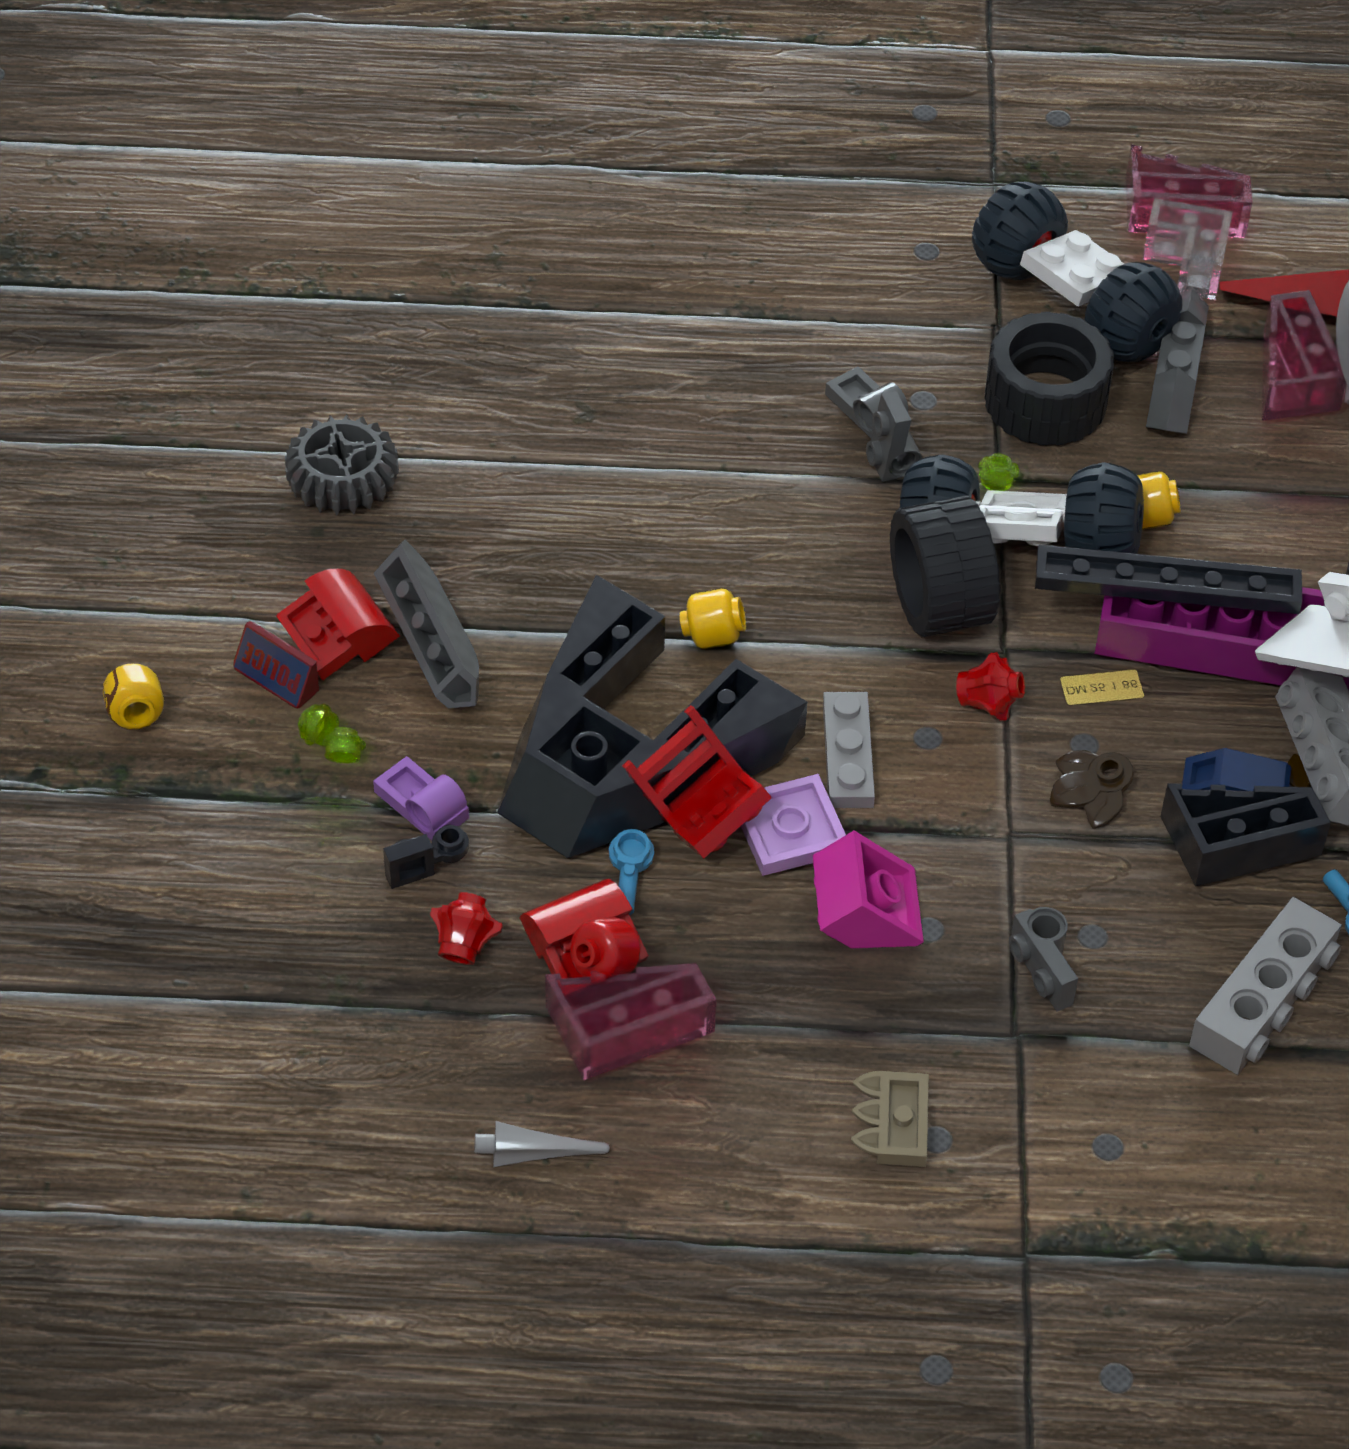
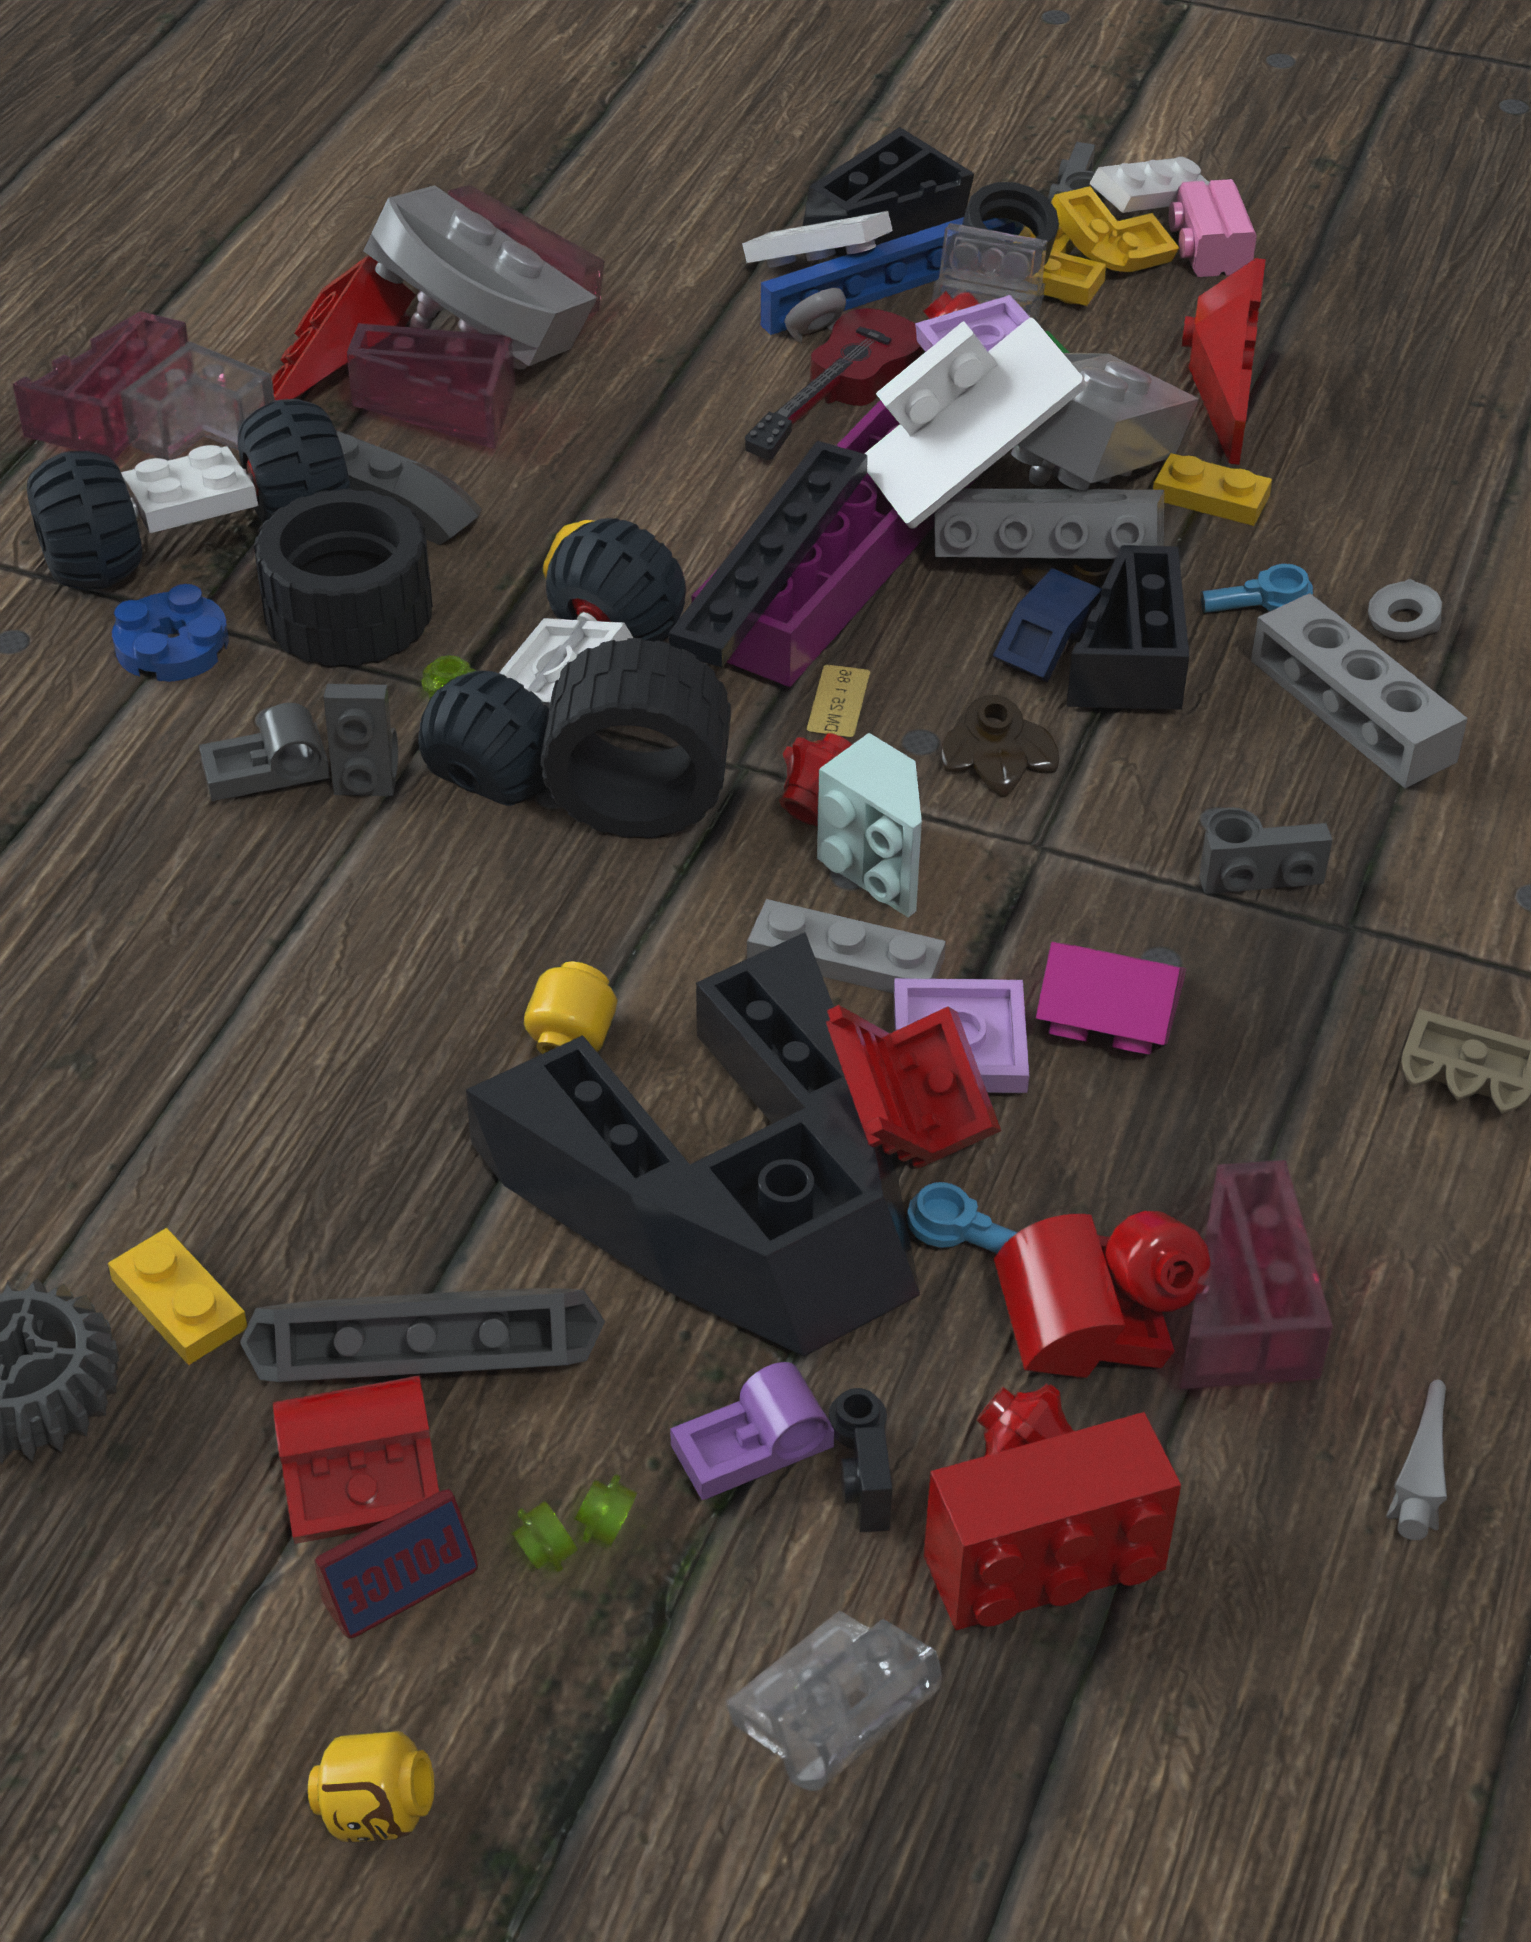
camera: 70 degrees left, 5 degrees down
(250, 878) = (836, 1696): none -> clear brick
(392, 943) = (1050, 1521): none -> red brick
(427, 514) = (177, 1296): none -> yellow plate
(947, 721) = (872, 821): none -> light aqua slope
(966, 303) = (144, 628): none -> blue plate

